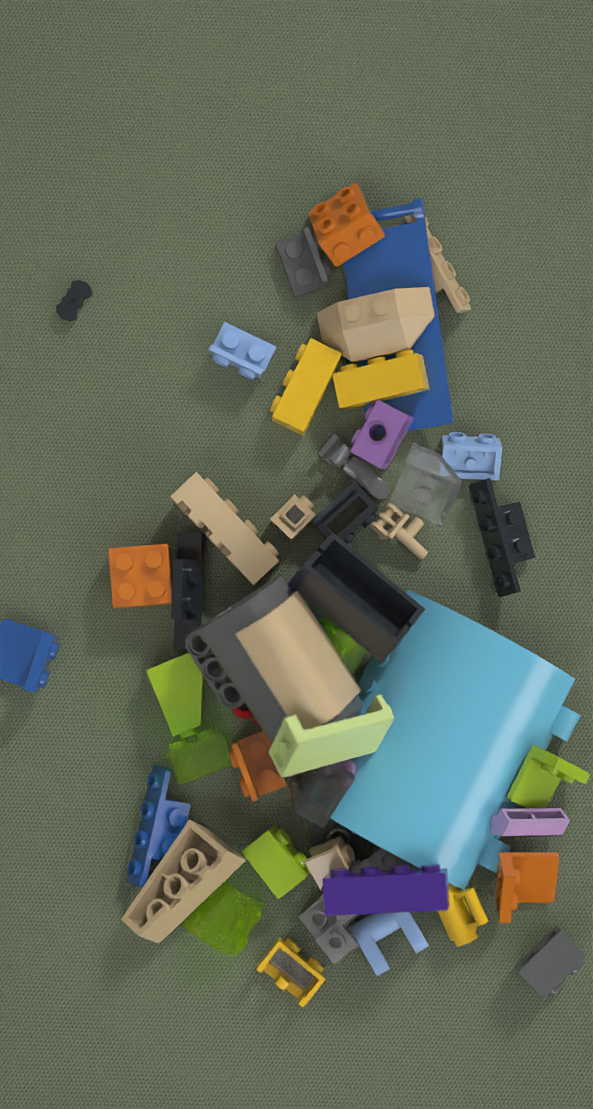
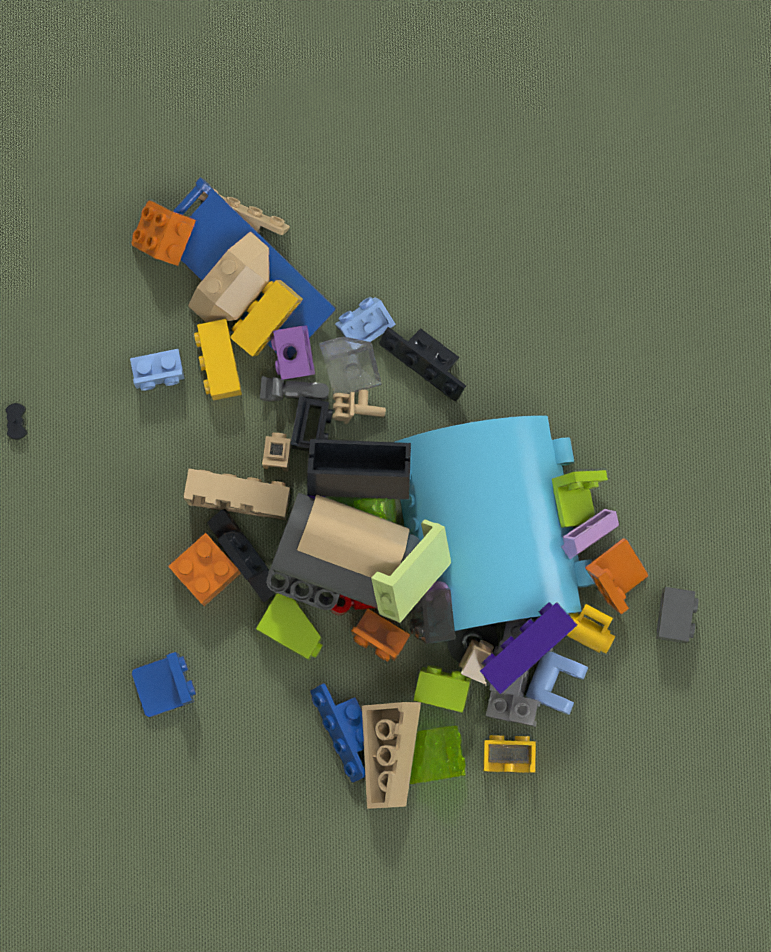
camera: 30 degrees left, 5 degrees down
(200, 756) = (336, 659): clear neon green bracket -> none
(303, 263) = (154, 280): dark grey bracket -> none

